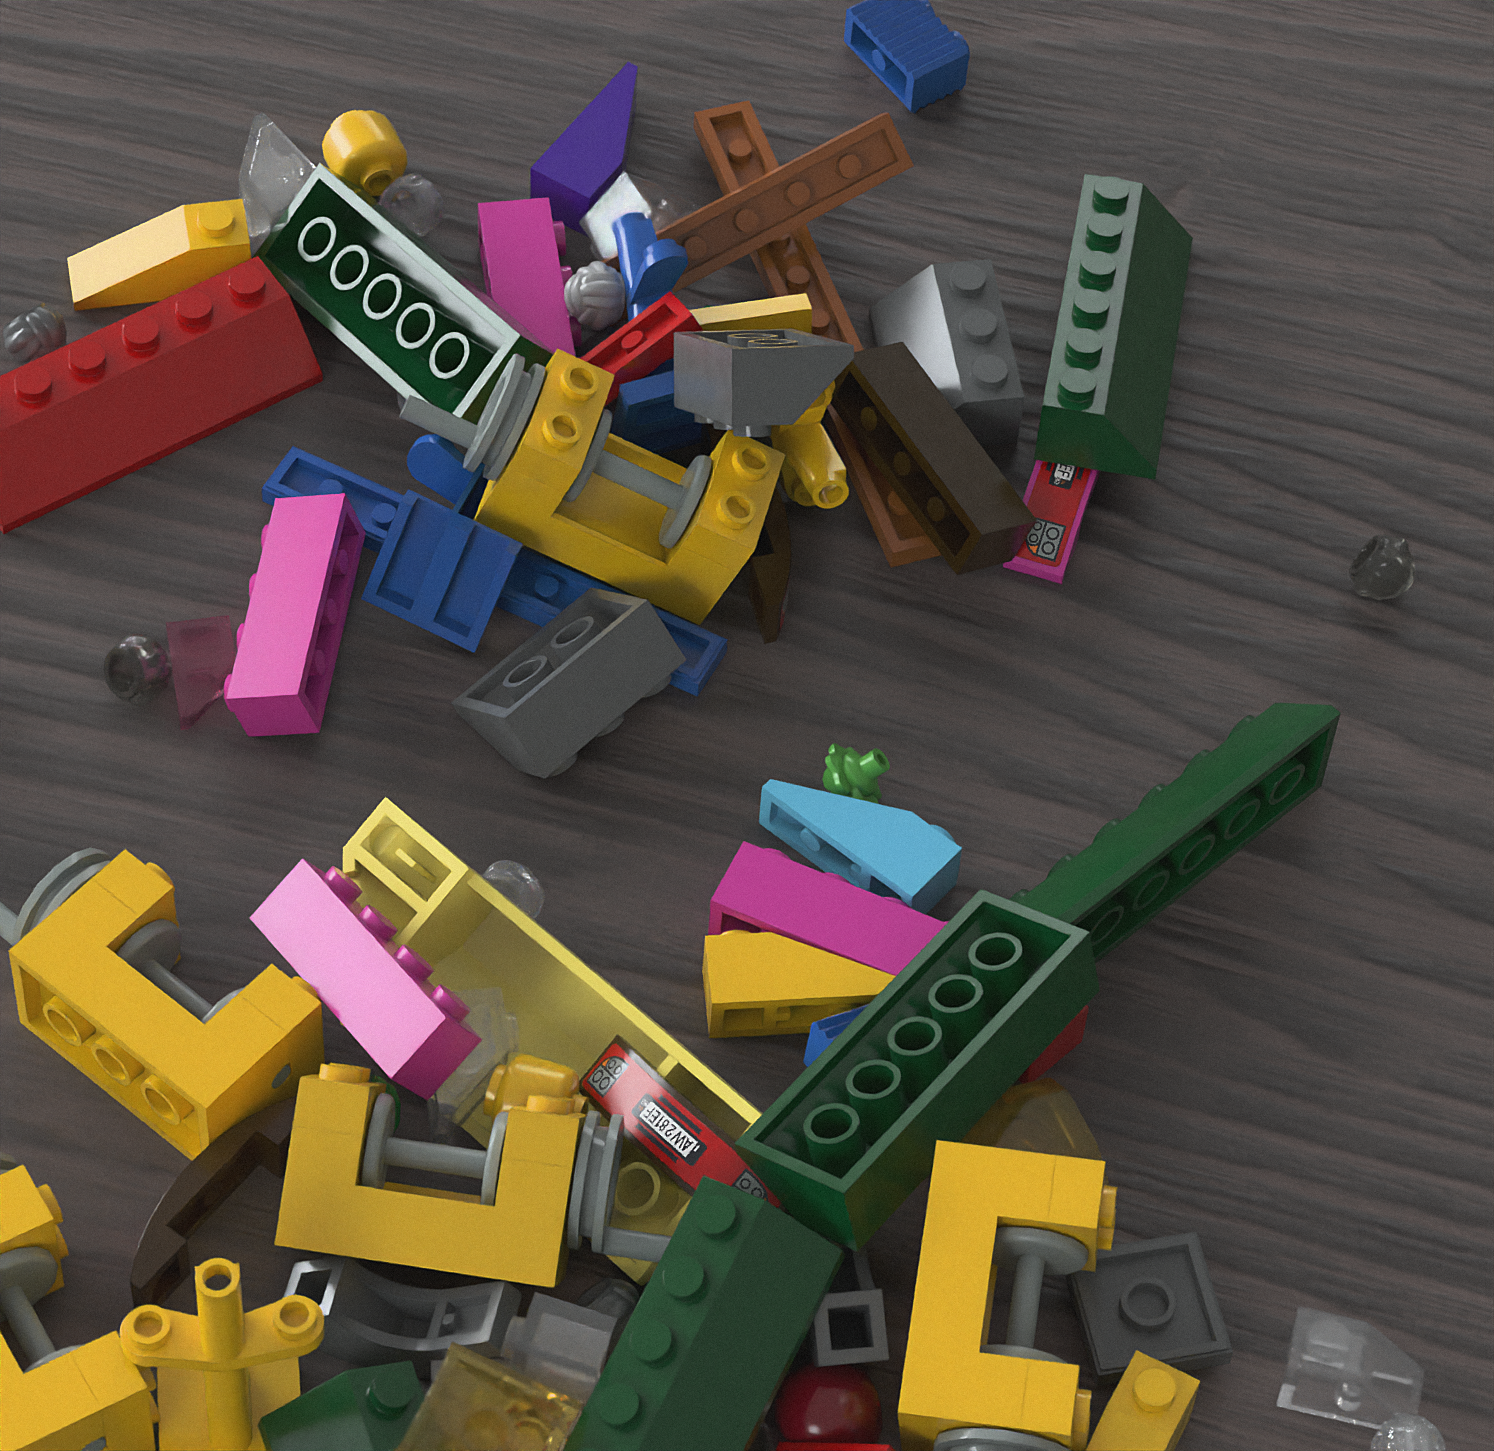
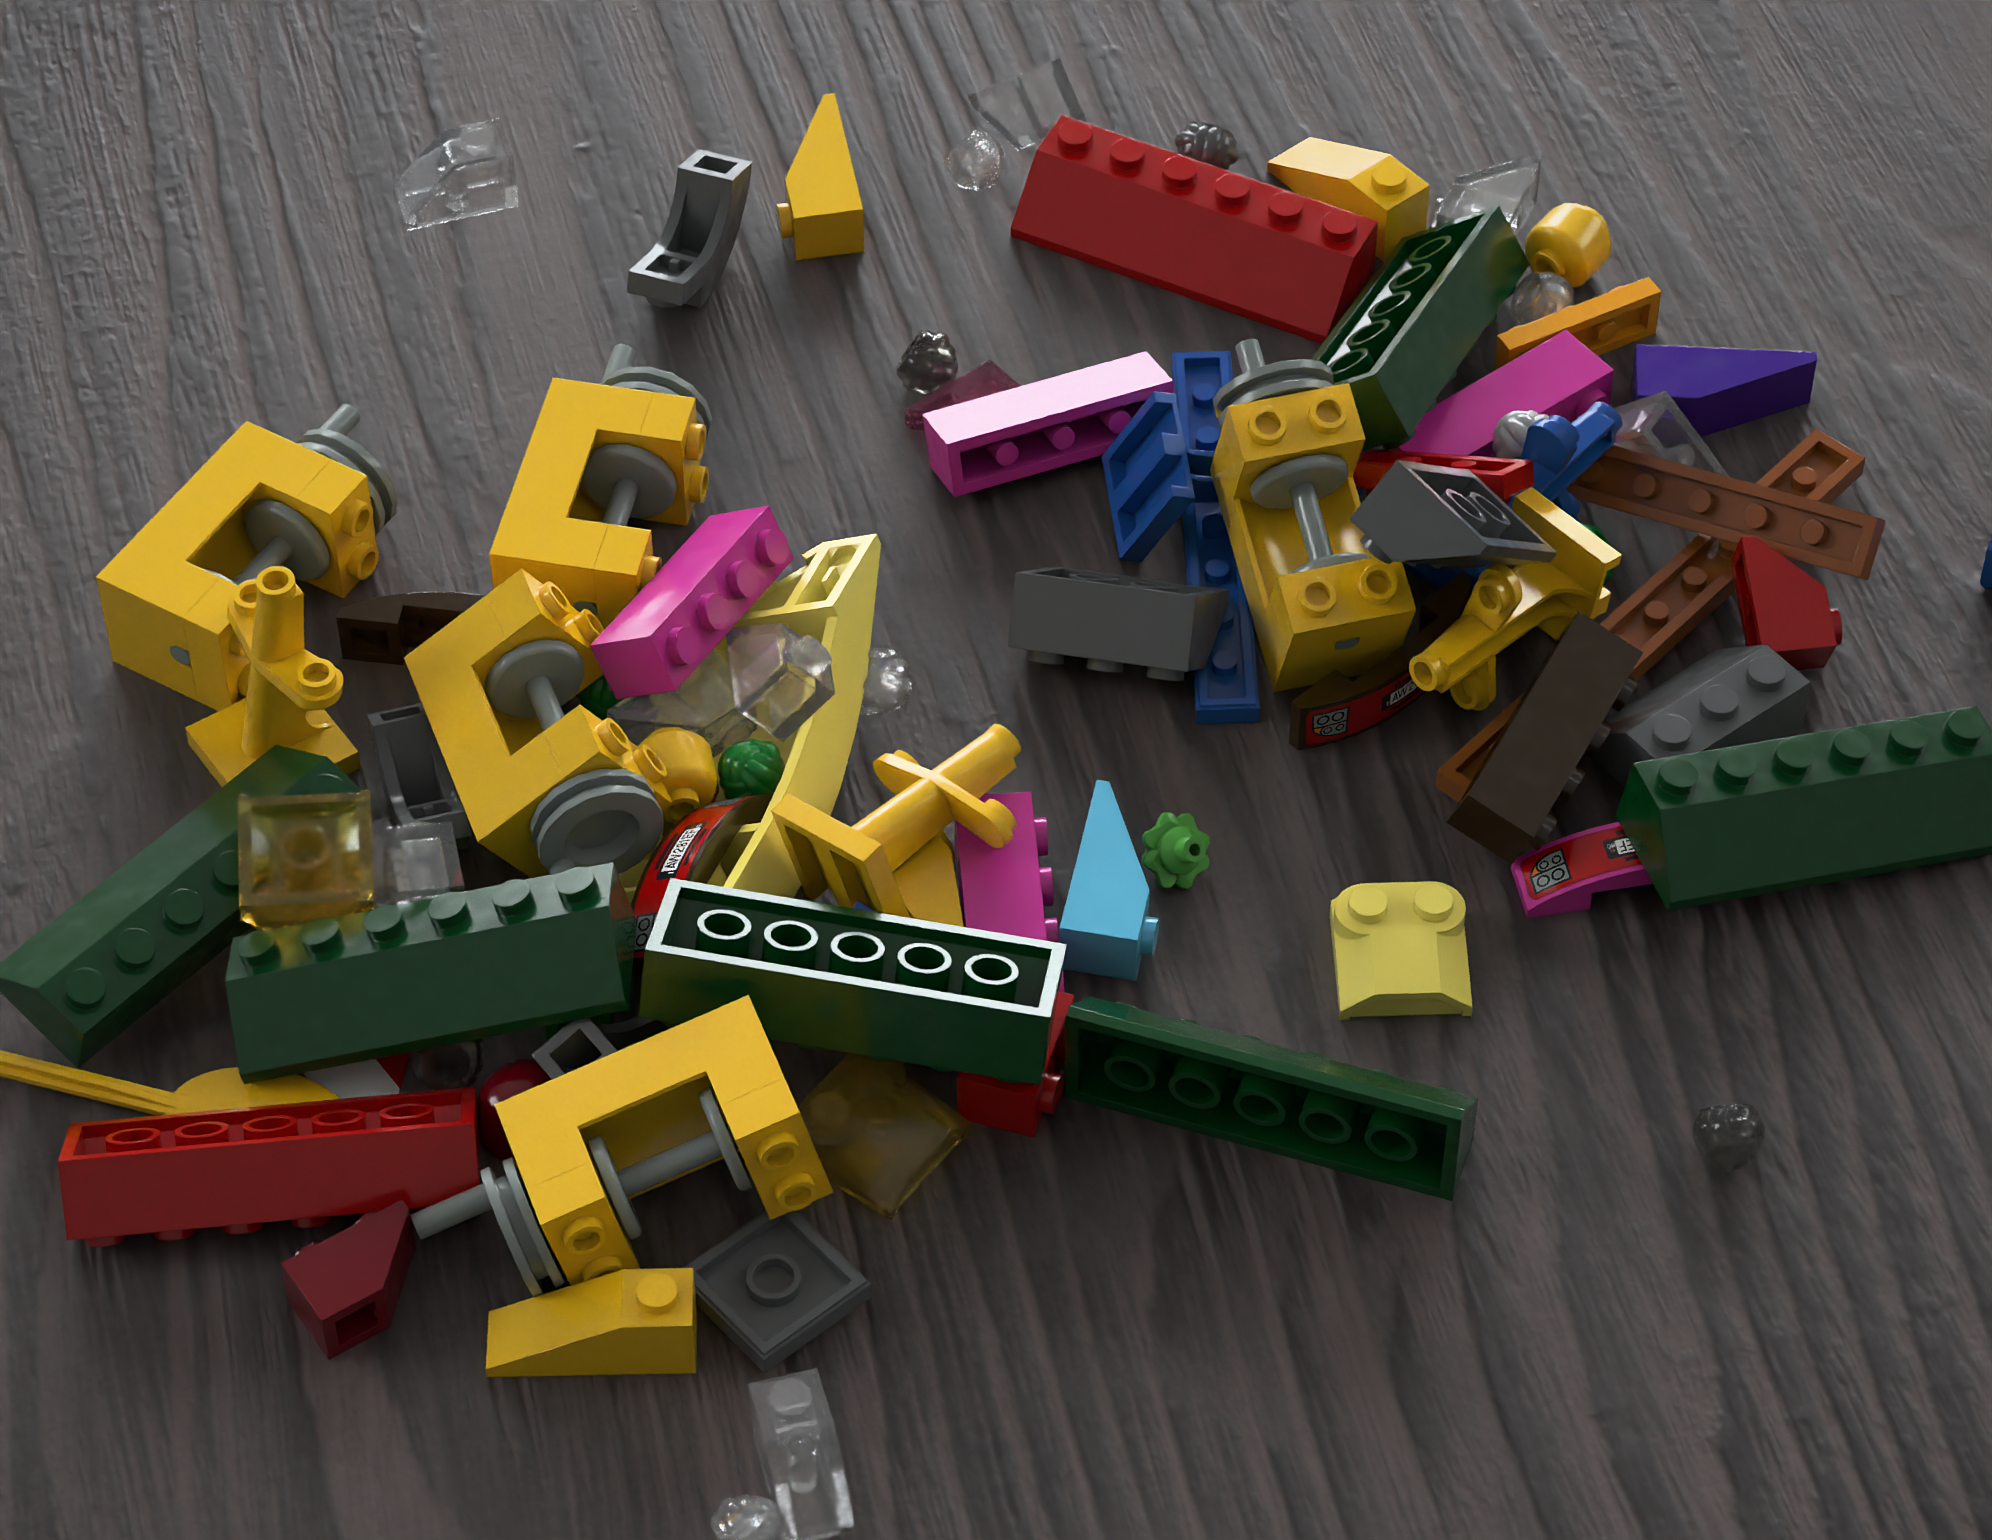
camera: 65 degrees right, 5 degrees down
(461, 201) = (1598, 323): none -> light orange plate
(512, 951) = (778, 676): none -> clear slope
(567, 1038) = (750, 769): none -> green piece
(761, 1002) = (862, 858): none -> yellow piece
(880, 238) = (1783, 606): none -> red slope
(1054, 683) = (1400, 950): none -> light yellow slope

